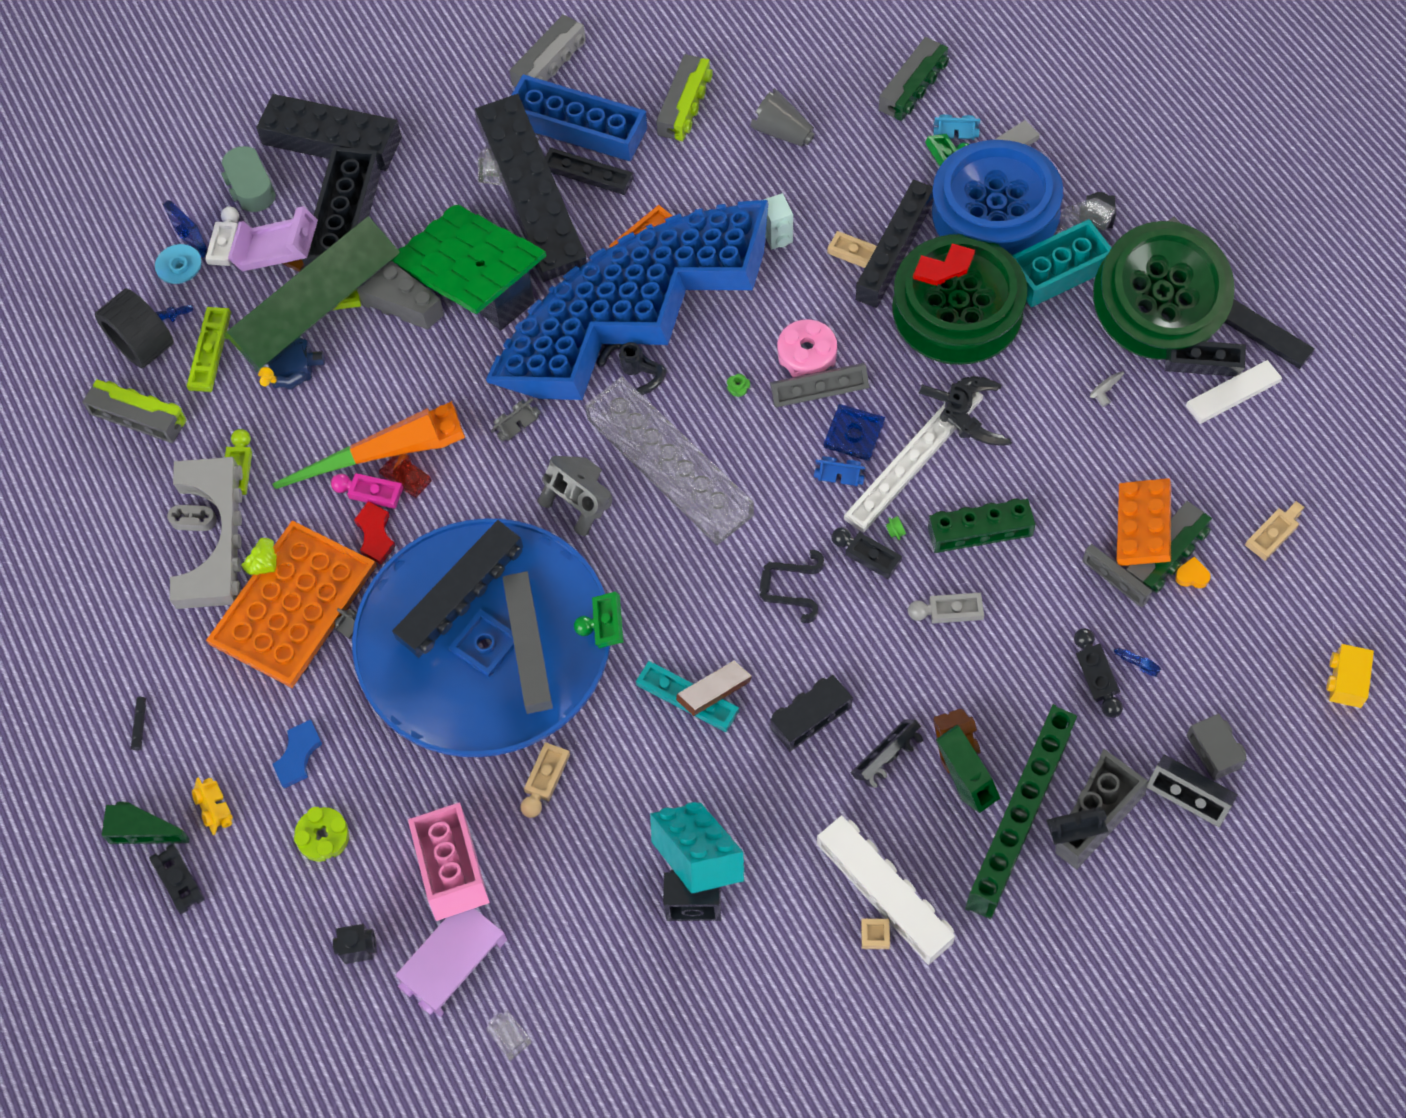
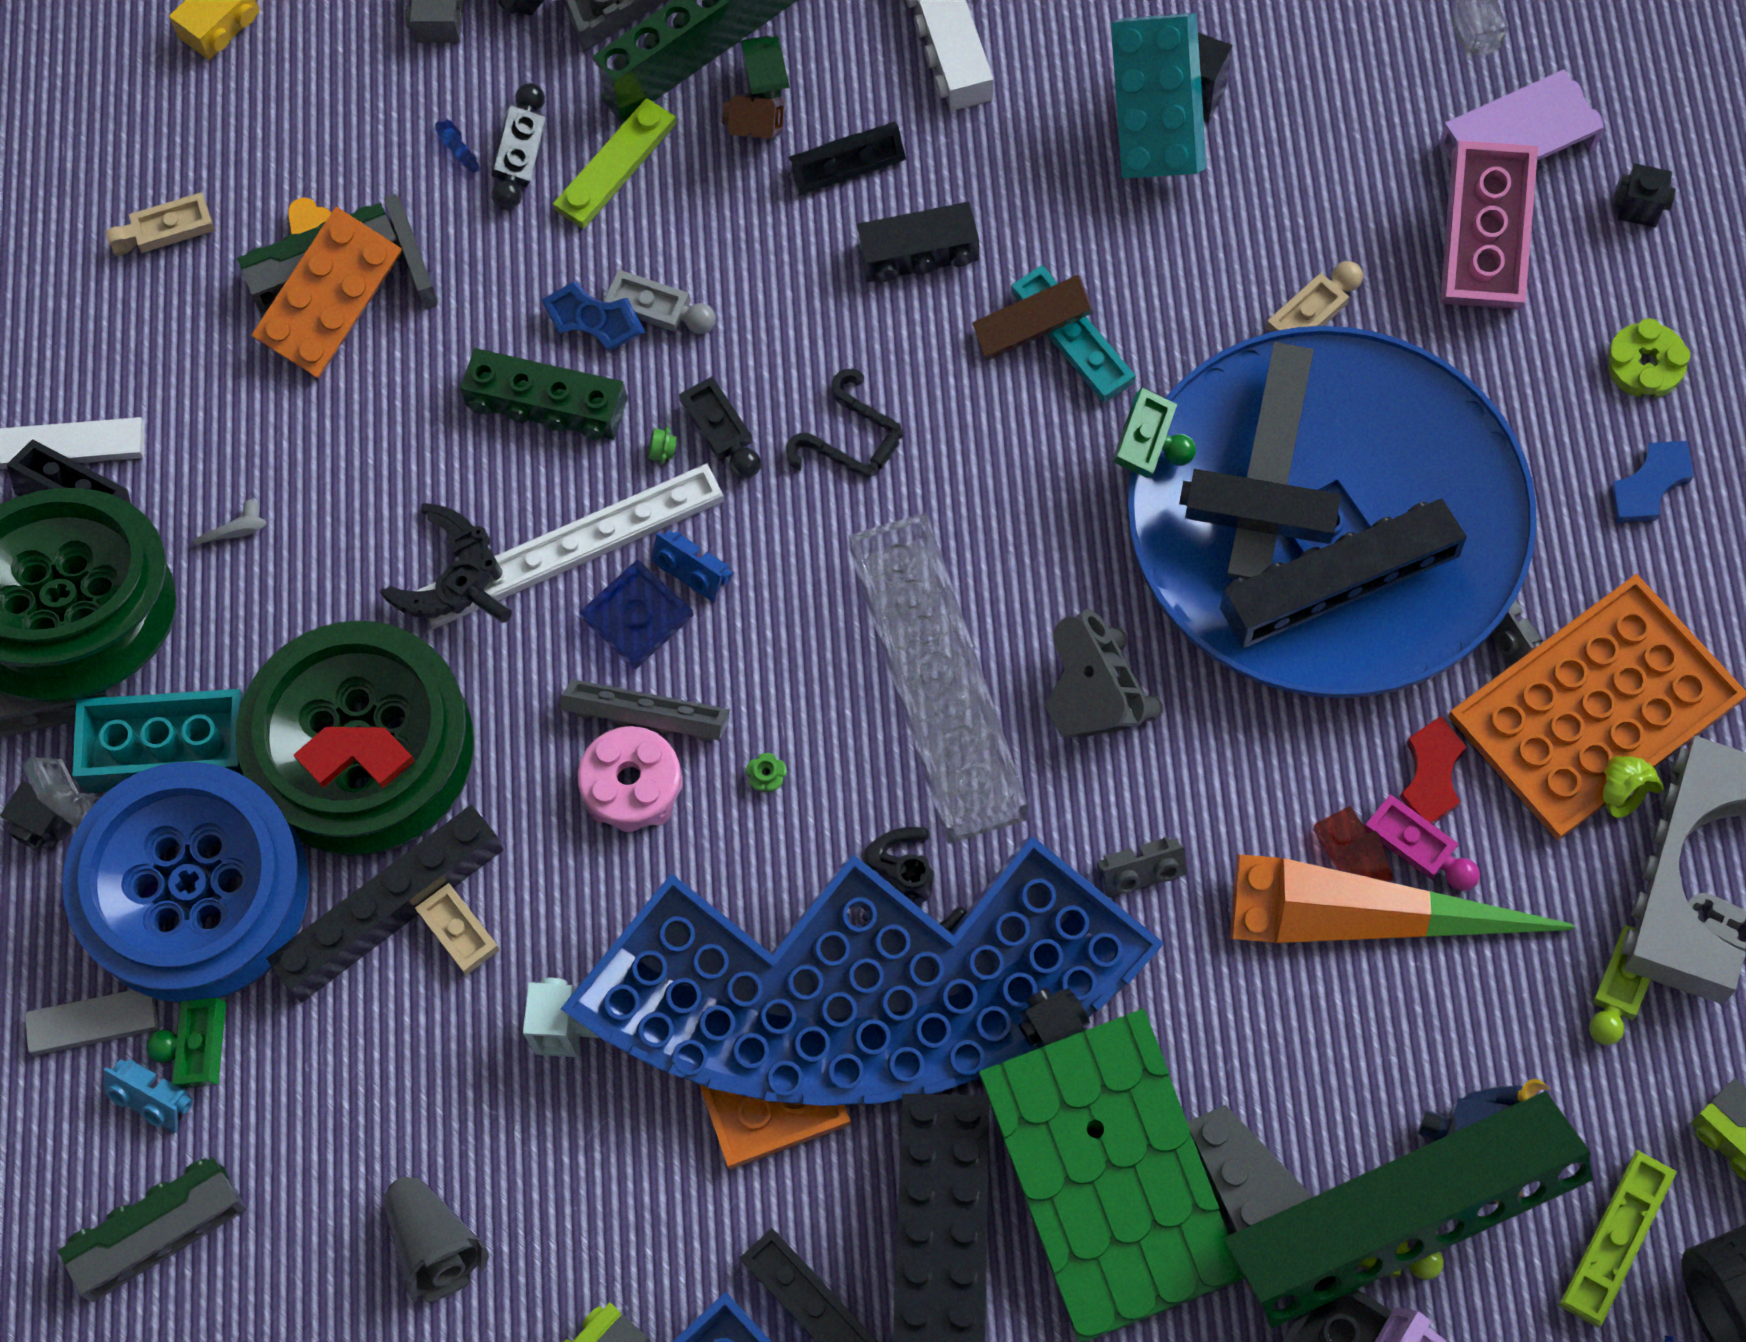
camera: 155 degrees left, 5 degrees up
(519, 600) = (1260, 506): none -> black brick
(524, 313) = (1052, 1017): none -> black brick
(969, 583) = (610, 322): none -> blue tile
(1031, 691) = (615, 163): none -> lime plate

